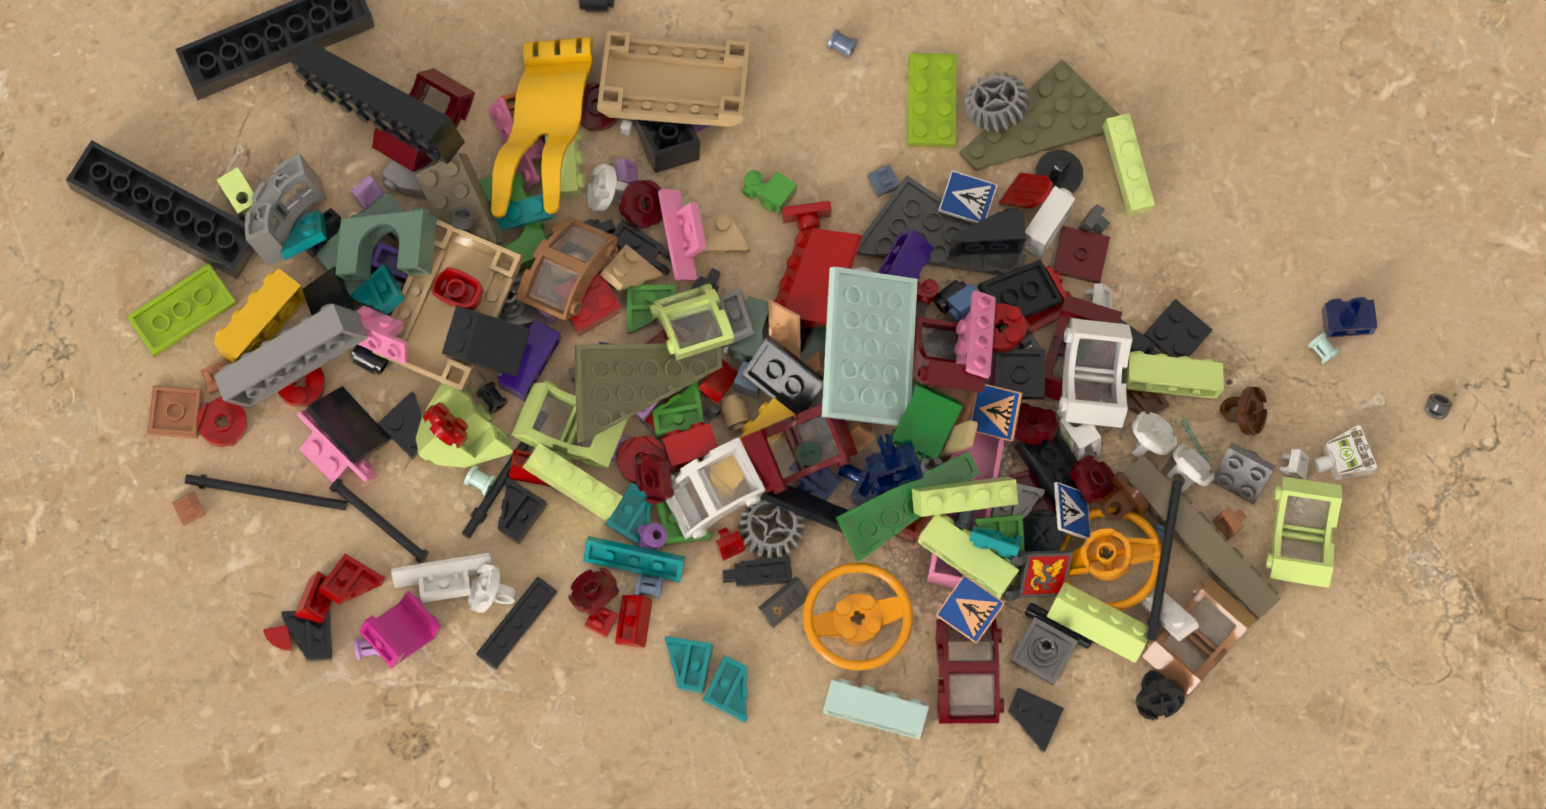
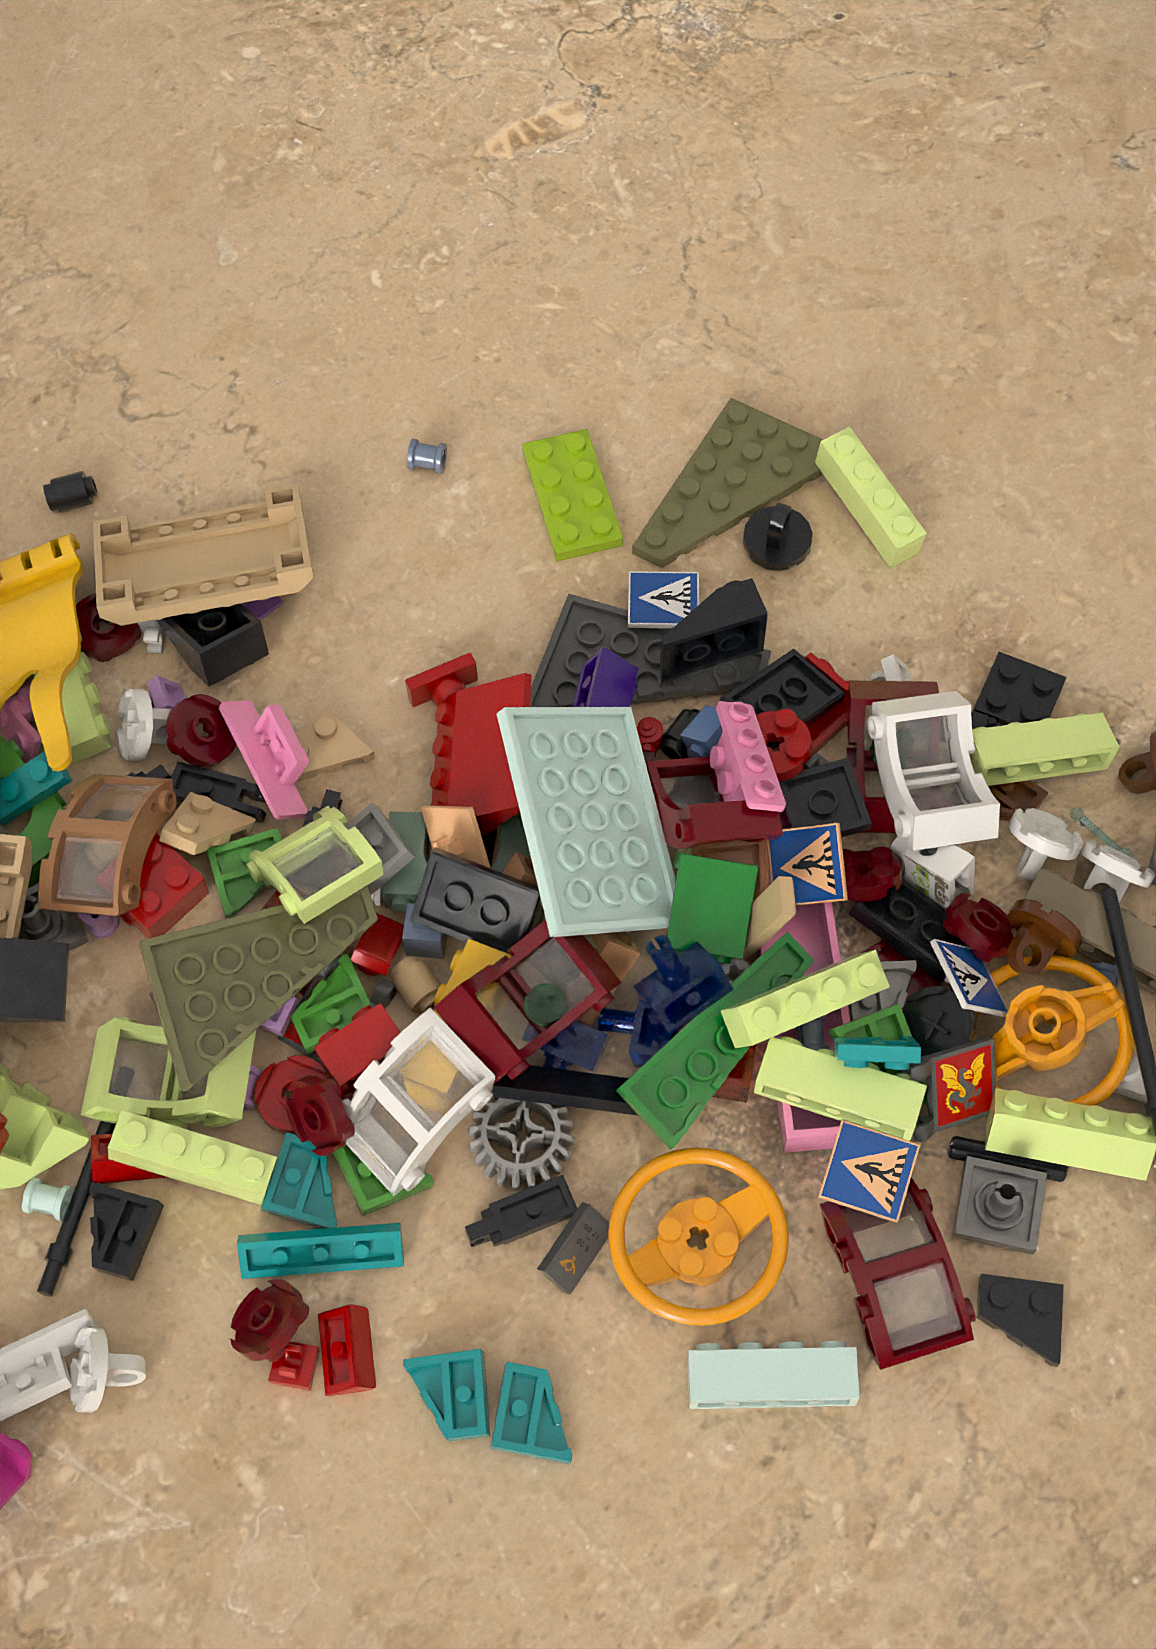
camera: 10 degrees left, 10 degrees down
(485, 392) = (48, 1078): black bush -> none
(516, 623) = (158, 1412): black tile -> none
(538, 351) = (92, 986): dark purple brick -> none
(646, 536) = (332, 1212): medium lavender brick -> none
(649, 585) = (355, 1286): sand blue bush -> none
(729, 544) = (464, 1183): red tile -> none
(773, 194) = (384, 670): bright green brick -> none
(883, 180) = (537, 612): sand blue tile -> none
(997, 108) = (662, 467): light grey gear -> none
(1027, 191) = (746, 561): red window -> none
(1048, 221) = (788, 595): white window -> none
(1081, 254) = (846, 631): dark red plate -> none
(1094, 220) = (849, 581): dark grey tile -> none

